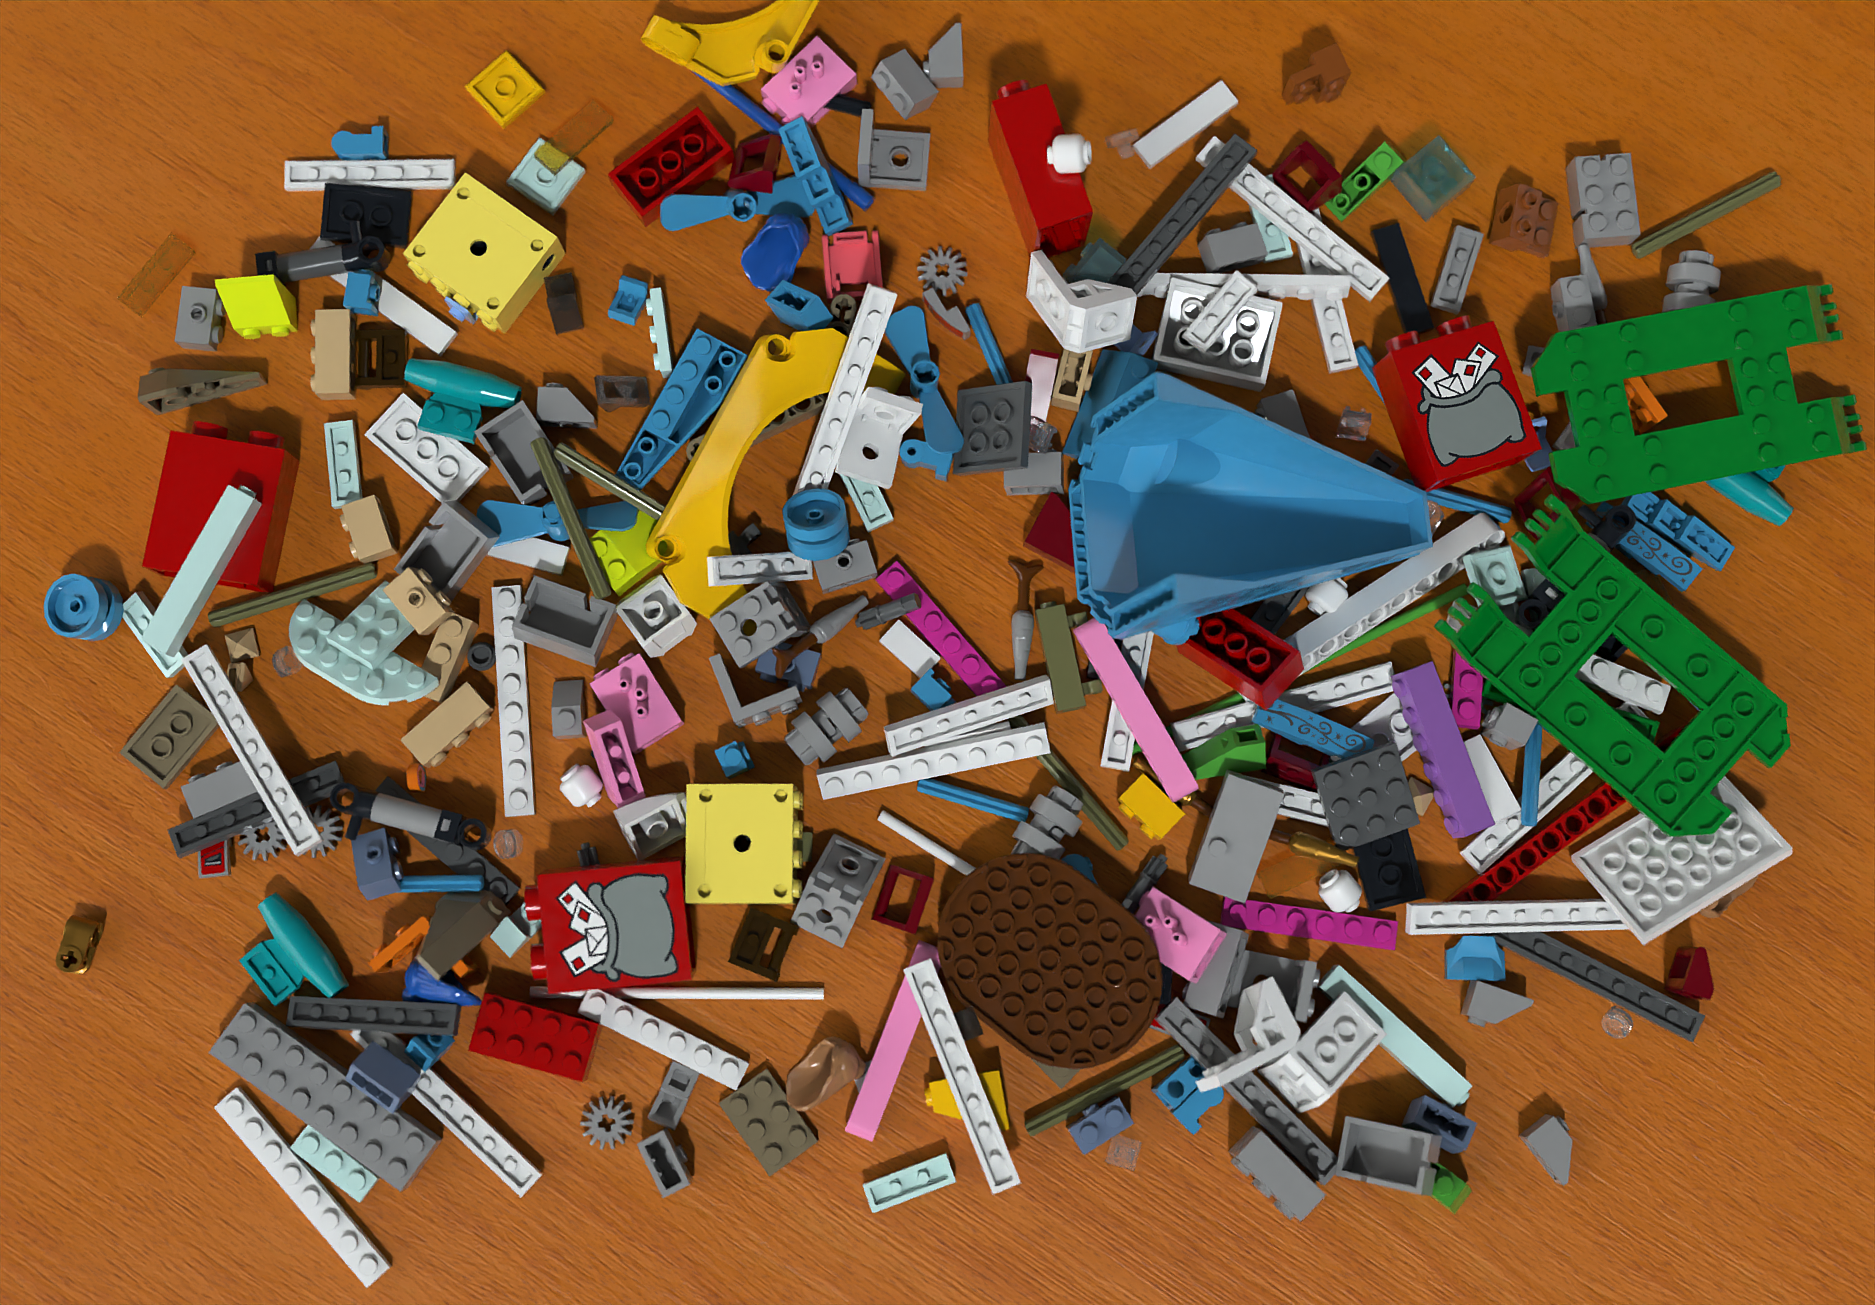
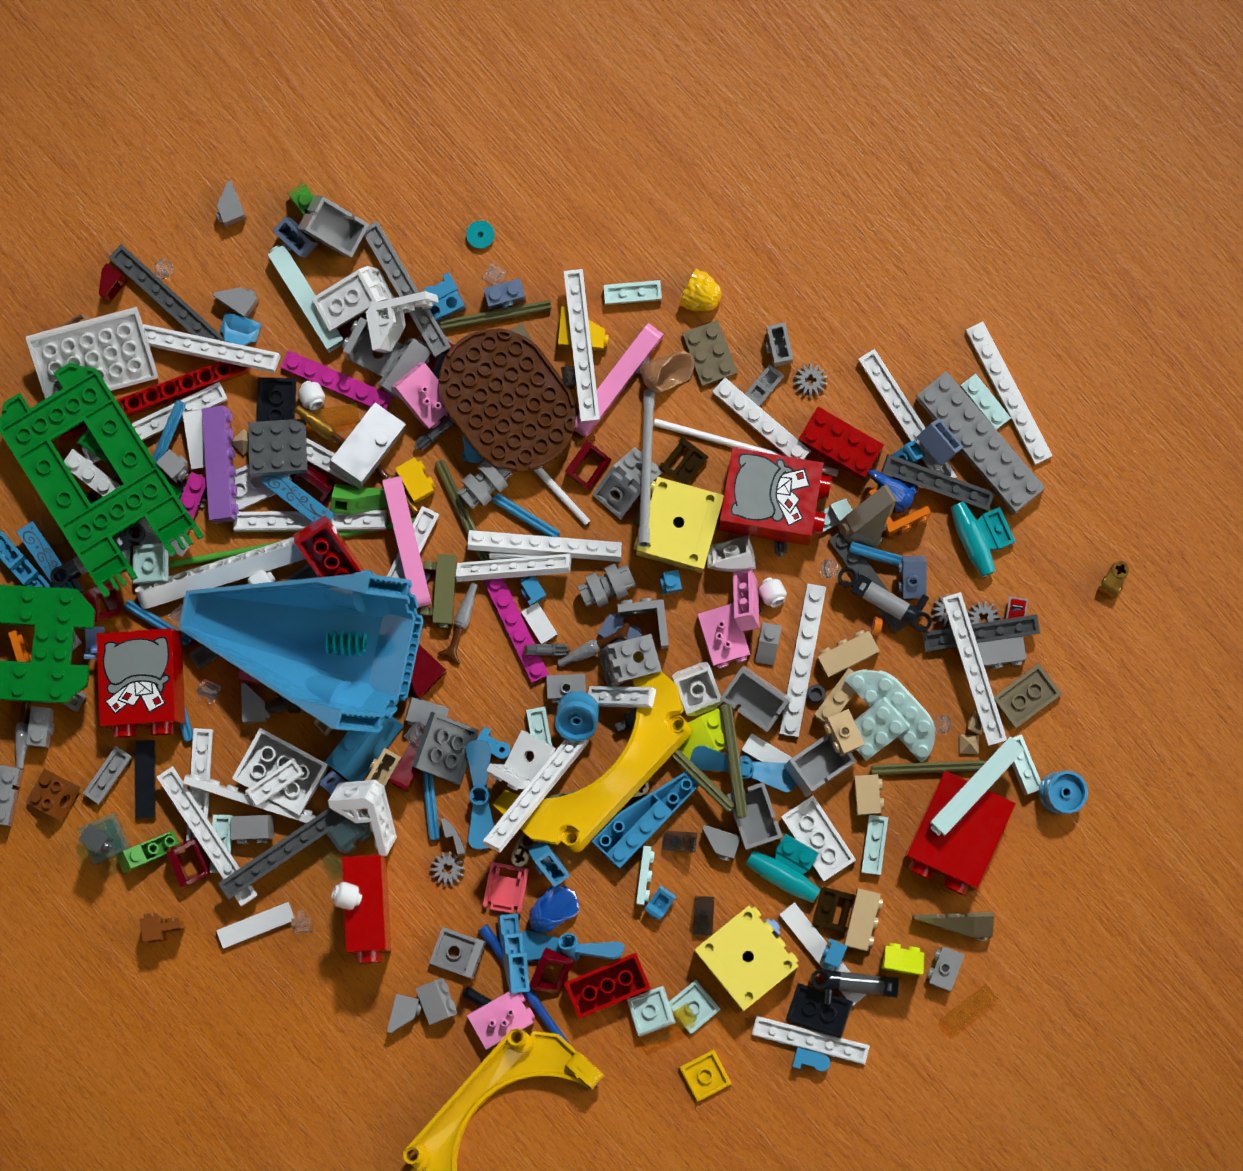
camera: 155 degrees left, 0 degrees up
(599, 149) = (651, 1011): none -> light aqua tile
(787, 811) = (644, 530): none -> light grey piece
(804, 1210) = (701, 292): none -> yellow hair
(1163, 1209) = (480, 234): none -> teal piece
(1179, 530) = (345, 644): none -> teal piece
(1275, 1175) = (406, 234): light grey piece -> none
(1446, 158) = (96, 839): none -> dark grey brick

